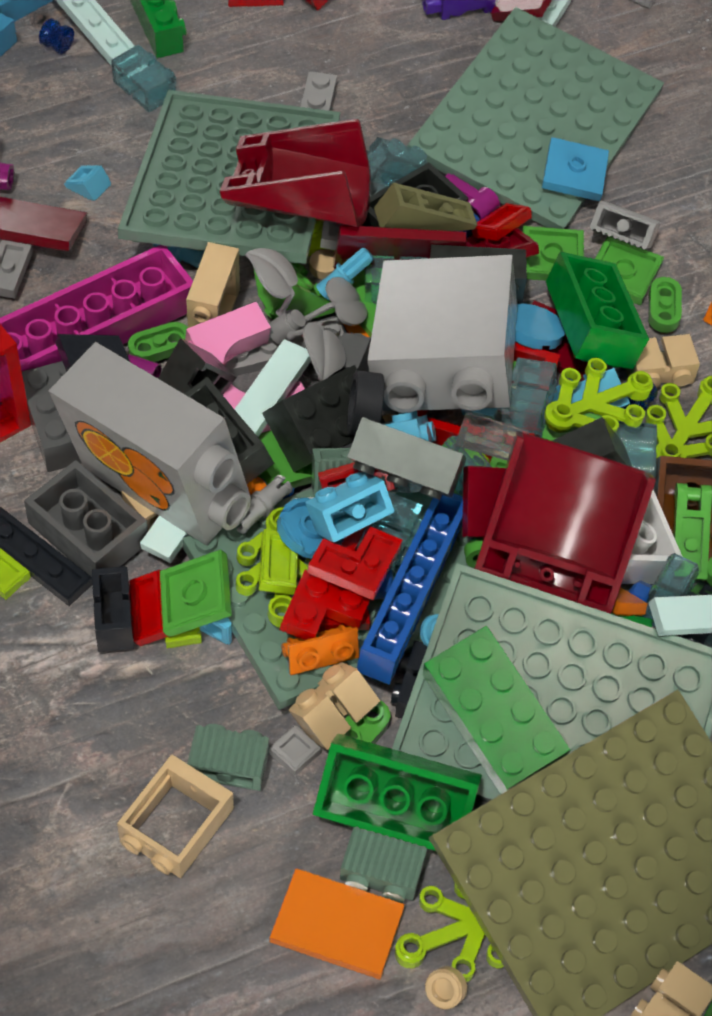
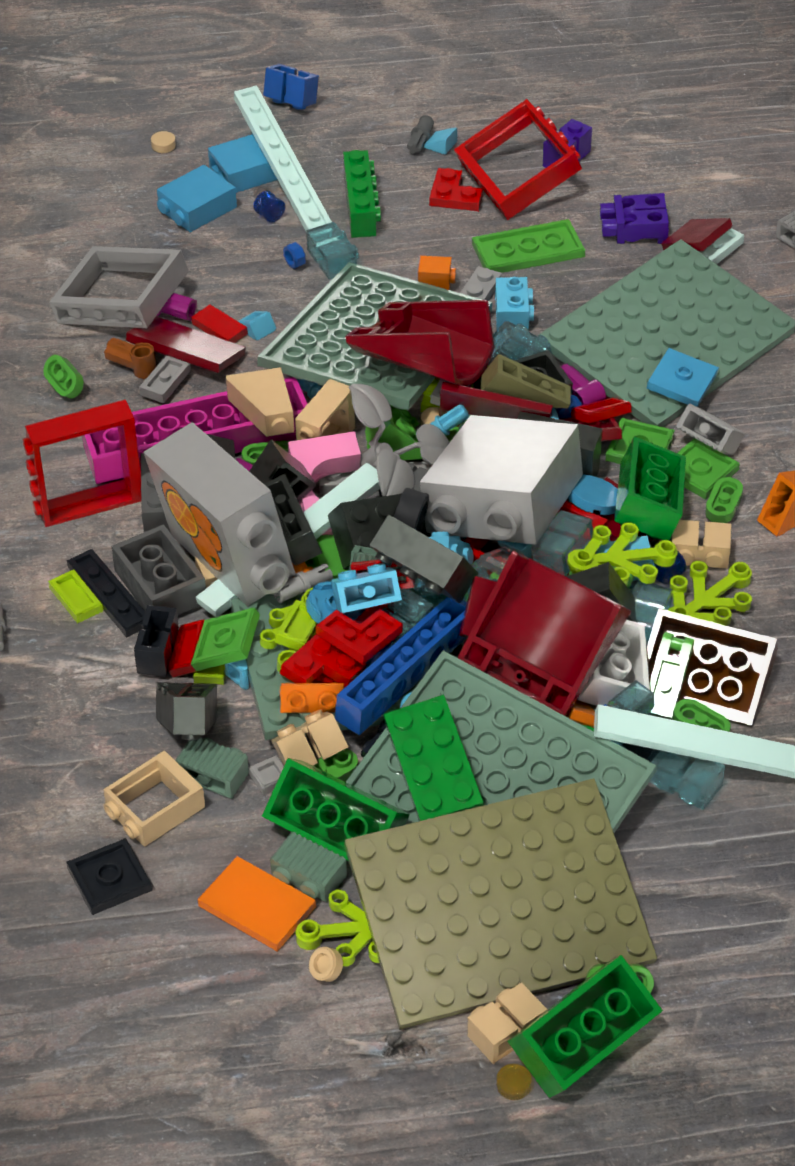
camera: 20 degrees right, 10 degrees down
(46, 189) = (219, 324): none -> red tile
(104, 91) = (294, 255): none -> blue tile
(141, 282) = (262, 400): none -> tan slope
(153, 930) = (109, 876): none -> black tile
(179, 694) = (186, 708): none -> pearl dark grey wedge
(268, 85) = (436, 271): none -> orange brick
(352, 39) = (528, 246): none -> bright green tile
(364, 102) = (513, 301): none -> medium azure brick

